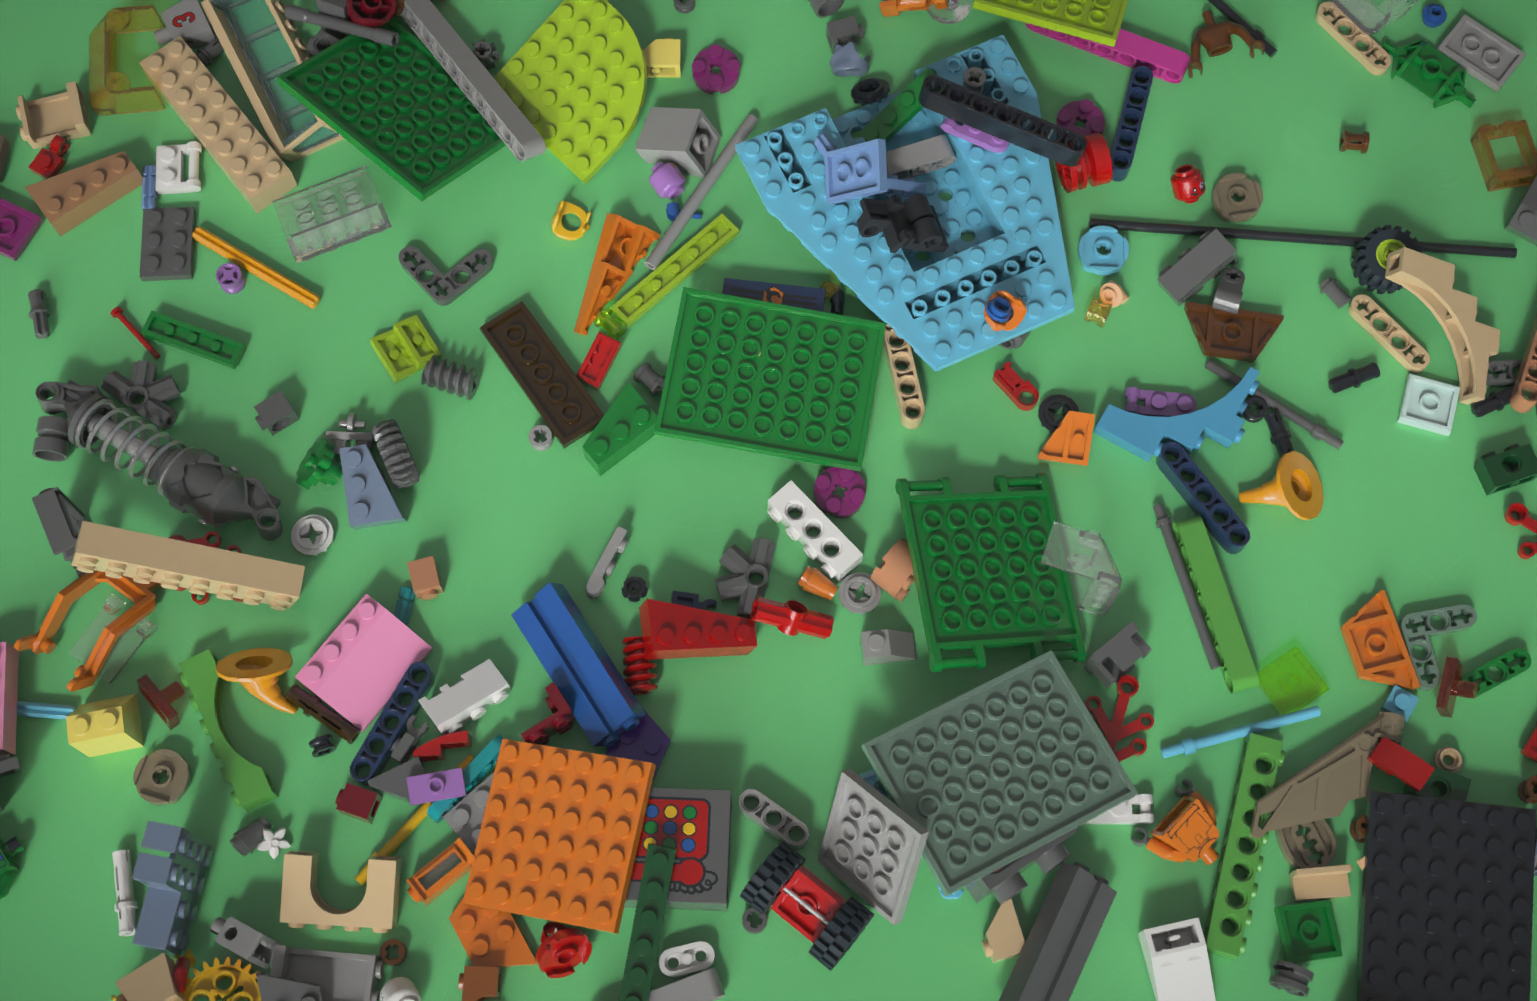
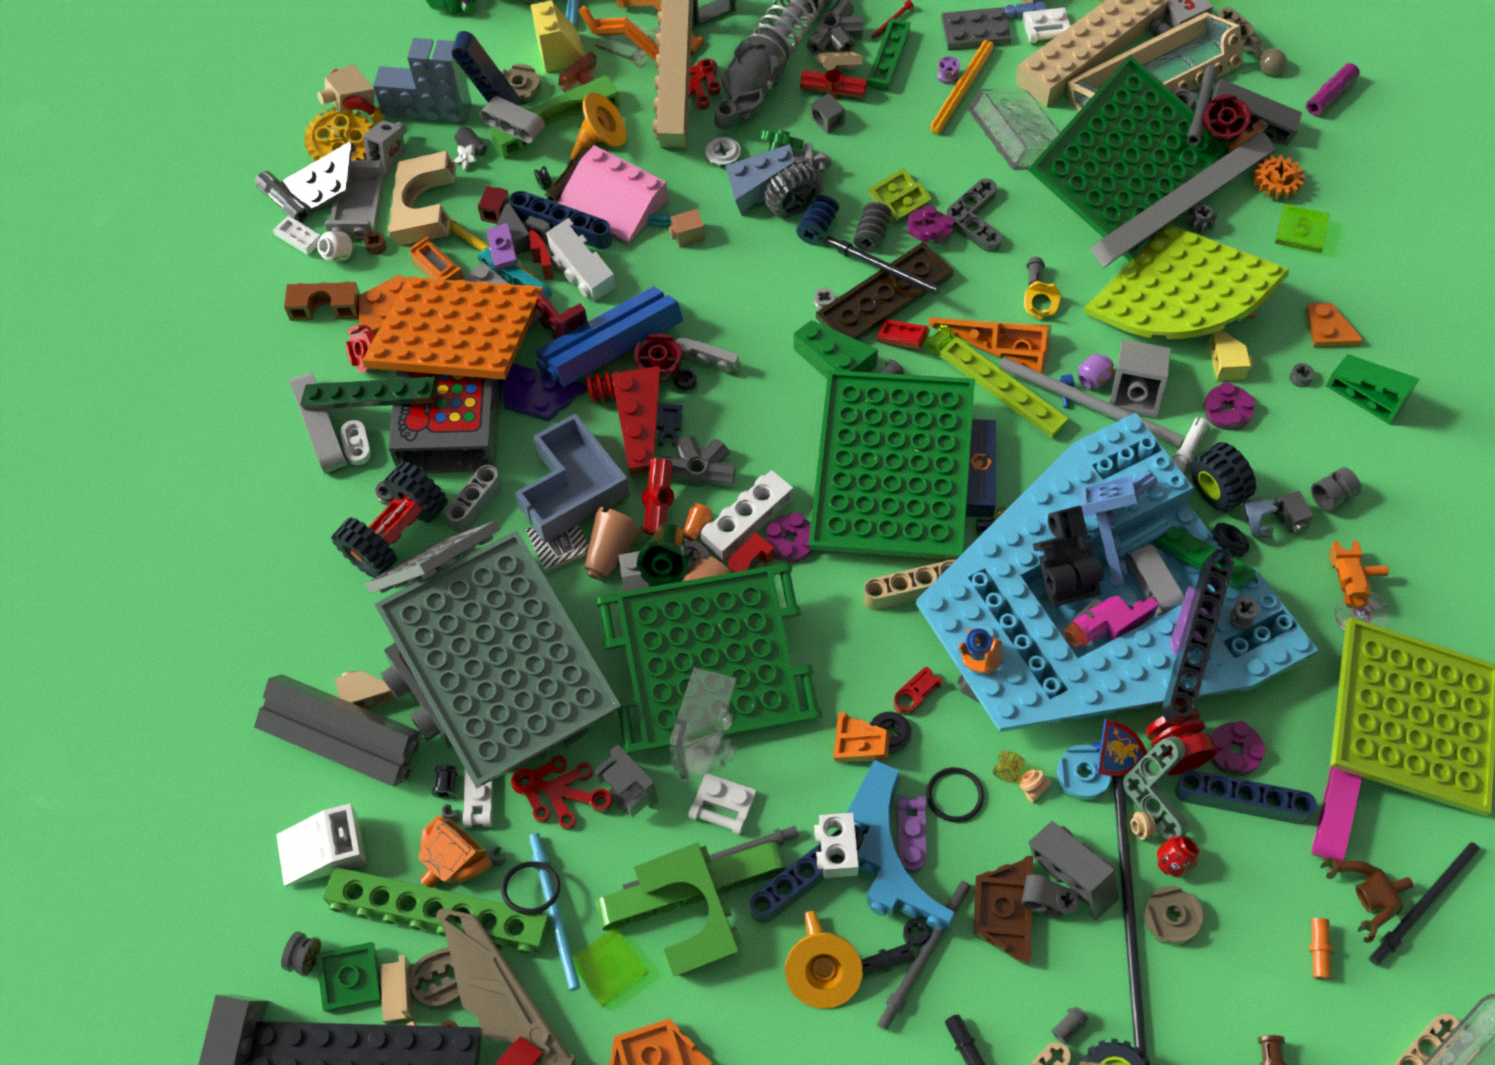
camera: 90 degrees right, 10 degrees down
(181, 799) = (482, 69): none -> dark blue beam
(196, 385) = (847, 60): none -> tan plate
(226, 417) = (833, 83): none -> red piece
(242, 774) = (512, 119): none -> light grey beam
(432, 435) = (817, 219): none -> dark blue piece
(456, 306) = (930, 224): none -> magenta plate
(475, 408) = (846, 248): none -> black bar
(531, 222) = (1035, 266): none -> dark grey pin
(613, 610) = (659, 351): none -> dark red cylinder
(765, 693) = (579, 480): none -> sand blue piece
(772, 117) = (1185, 454): none -> white pin
(809, 82) = (1223, 476): none -> black wheel
(829, 729) = (559, 550): none -> tile
(842, 670) = (611, 536): none -> nougat cone
(866, 537) = (751, 554): none -> red leg
(870, 606) = (664, 557): none -> dark green cone
(964, 201) = (1108, 618): none -> dark pink plate
(1087, 215) = (1118, 750): none -> shield
(1107, 842) = (445, 781): none -> black bush
(1113, 385) = (955, 818): none -> black tyre
(1122, 195) = (1149, 781): none -> sand green beam
(1126, 559) = (725, 796): none -> white plate
(1155, 209) = (1142, 825): none -> tan plate
(1187, 453) = (839, 845): none -> white brick
(1224, 774) = (510, 904): none -> black tyre
(1264, 90) = (1321, 949): none -> orange pin
(1270, 580) = (717, 936): none -> bright green arch

